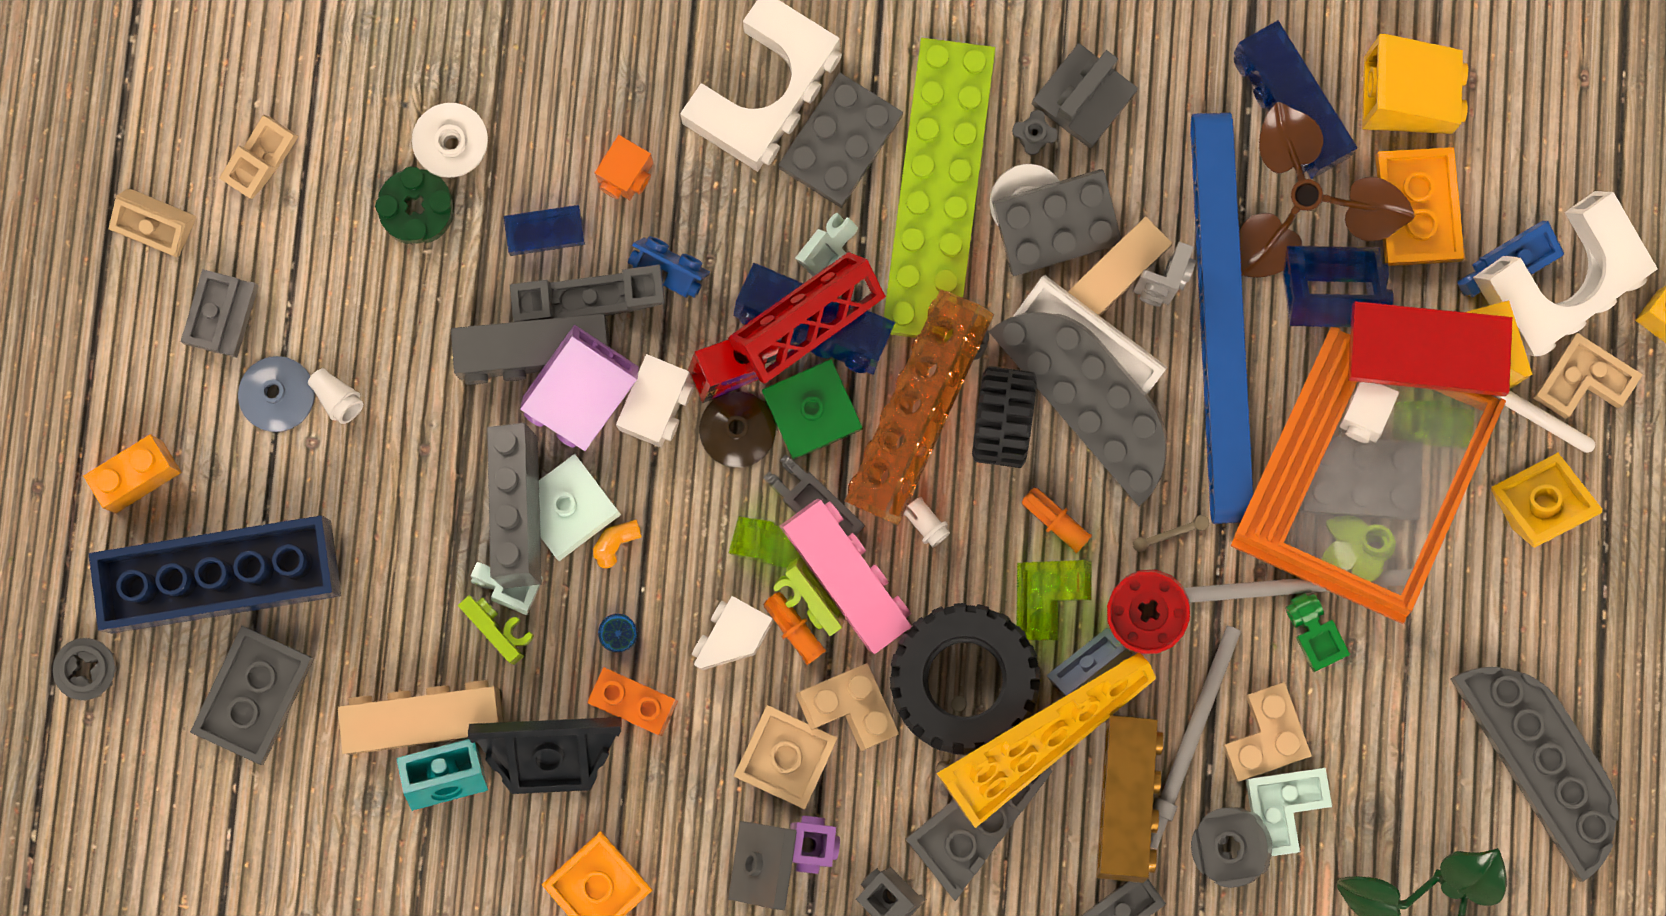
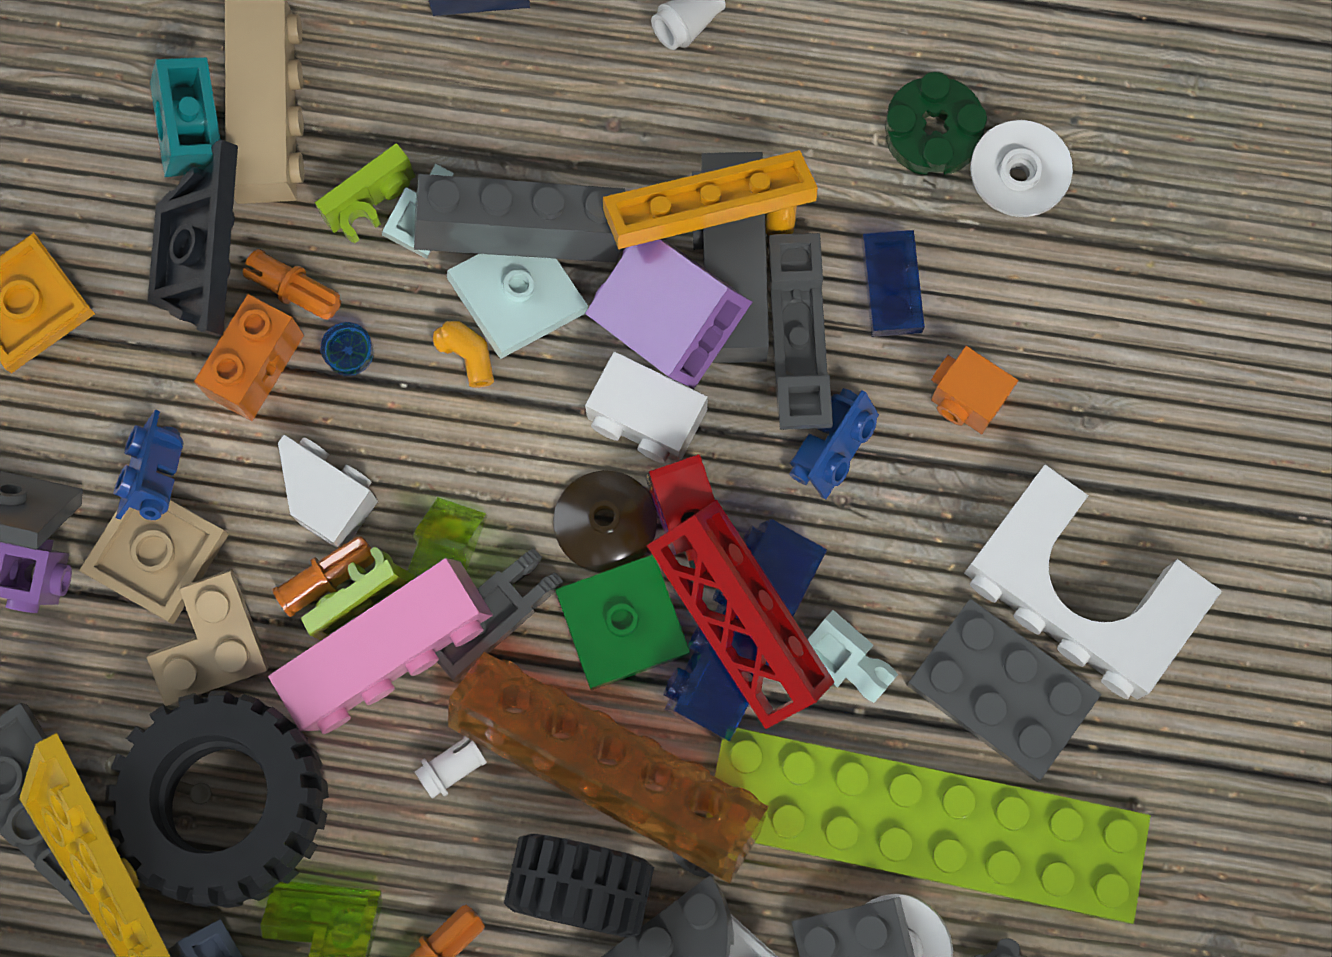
camera: 95 degrees right, 5 degrees down
(496, 359) = (714, 198): none -> light orange piece
(571, 678) = (292, 284): none -> orange axle
(710, 769) = (139, 483): none -> blue hinge

